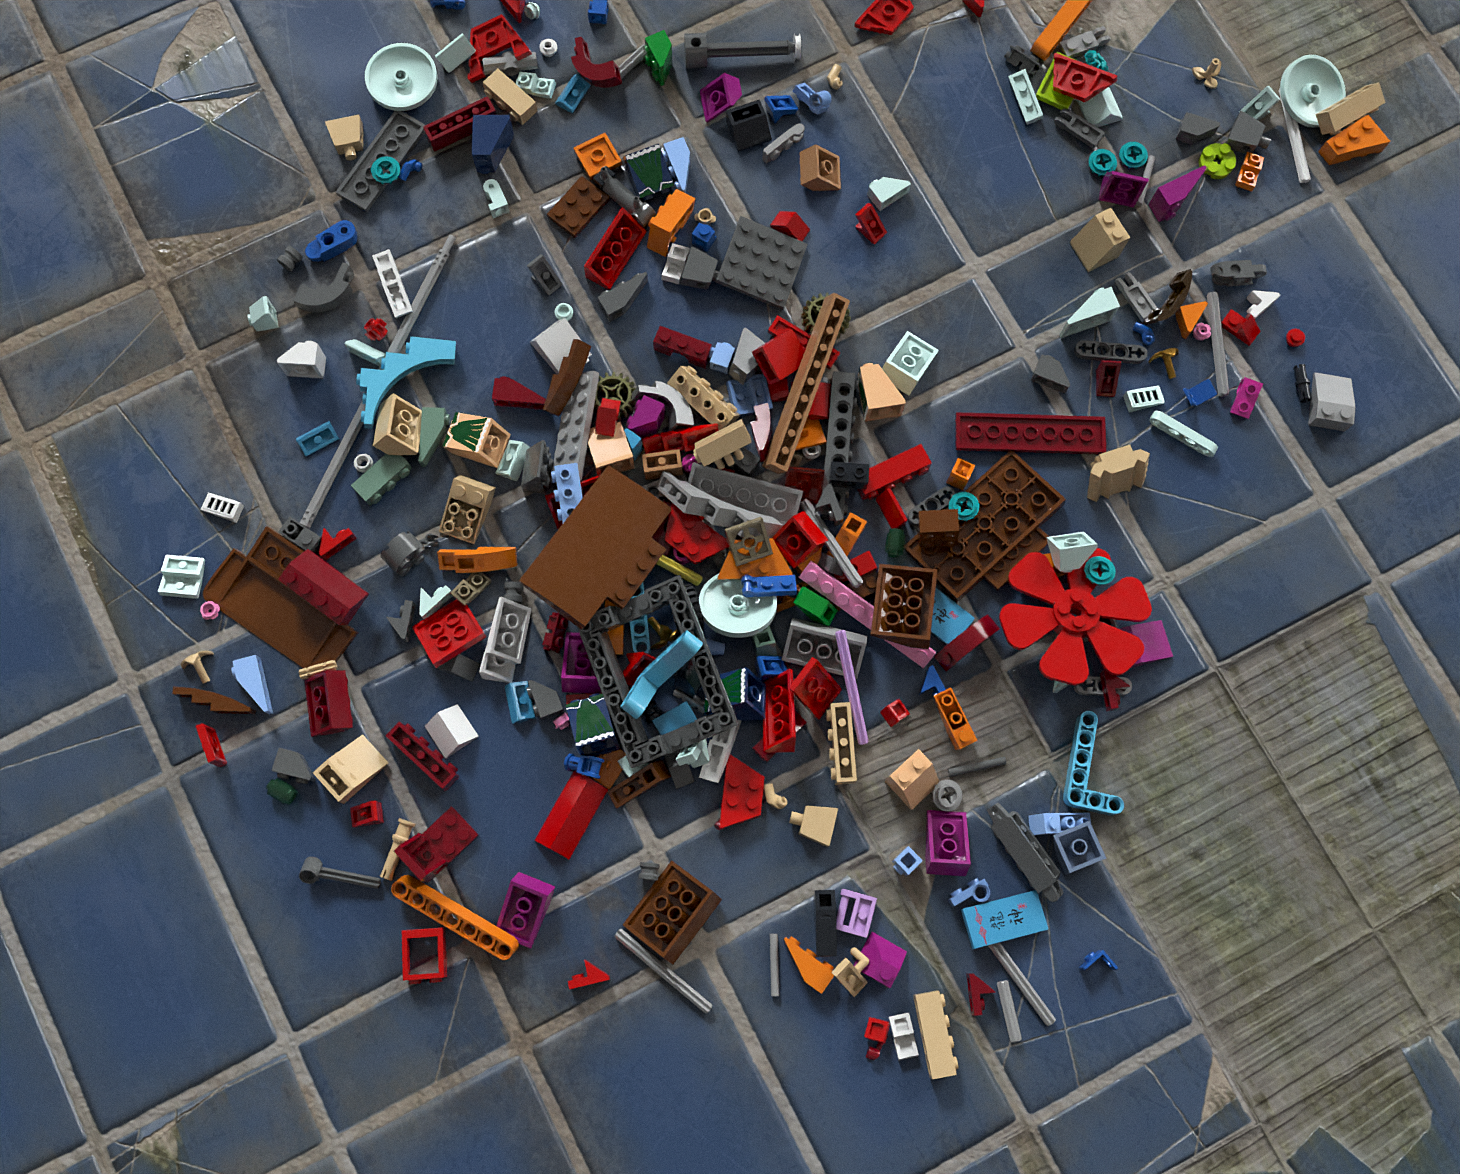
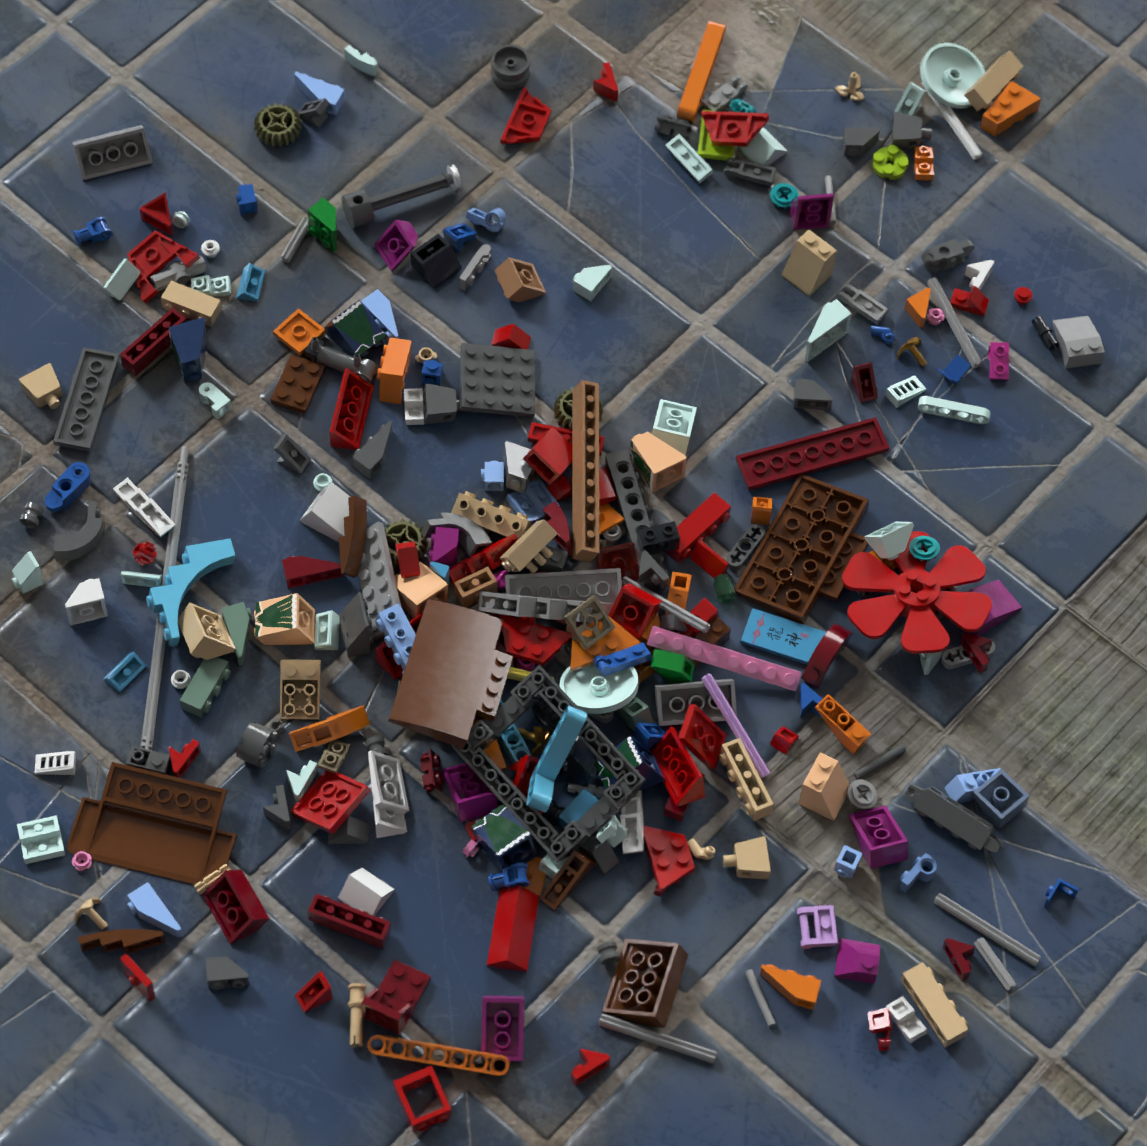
camera: 20 degrees left, 15 degrees down
(281, 791) = (221, 1000): clear green brick -> none
(313, 870) = (307, 1057): dark grey axle -> none
(324, 587) = (193, 797): dark red slope -> none
(350, 769) = (282, 958): tan slope -> none
(386, 163) = (93, 399): teal gear -> none
(401, 76) = (77, 316): light aqua dish -> none
(408, 167) = (117, 396): blue arm -> none
(519, 702) = (421, 846): dark azure slope -> none
(546, 700) = (447, 833): dark grey slope -> none
(599, 75) = (267, 258): dark red arch -> none
(670, 341) = (465, 476): dark red arch -> none
(825, 923) = (793, 939): black slope -> none
(832, 77) = (501, 198): tan arm -> none
(850, 975) = (834, 977): tan plate -> none
(870, 224) = (587, 314): red slope -> none
(904, 605) = (757, 635): reddish brown slope -> none
(938, 528) = (760, 559): reddish brown brick -> none
(972, 504) = (770, 530): teal gear -> none
(1004, 919) = (958, 884): dark azure tile -> none
(1074, 766) = (978, 731): medium azure beam -> none
(1110, 352) = (857, 356): dark grey beam -> none
(1117, 472) = (906, 460): tan slope -> none
(1137, 149) = (813, 175): teal gear -> none
(1171, 196) = (861, 202): magenta slope -> none
(1180, 285) = (900, 282): dark brown slope -> none

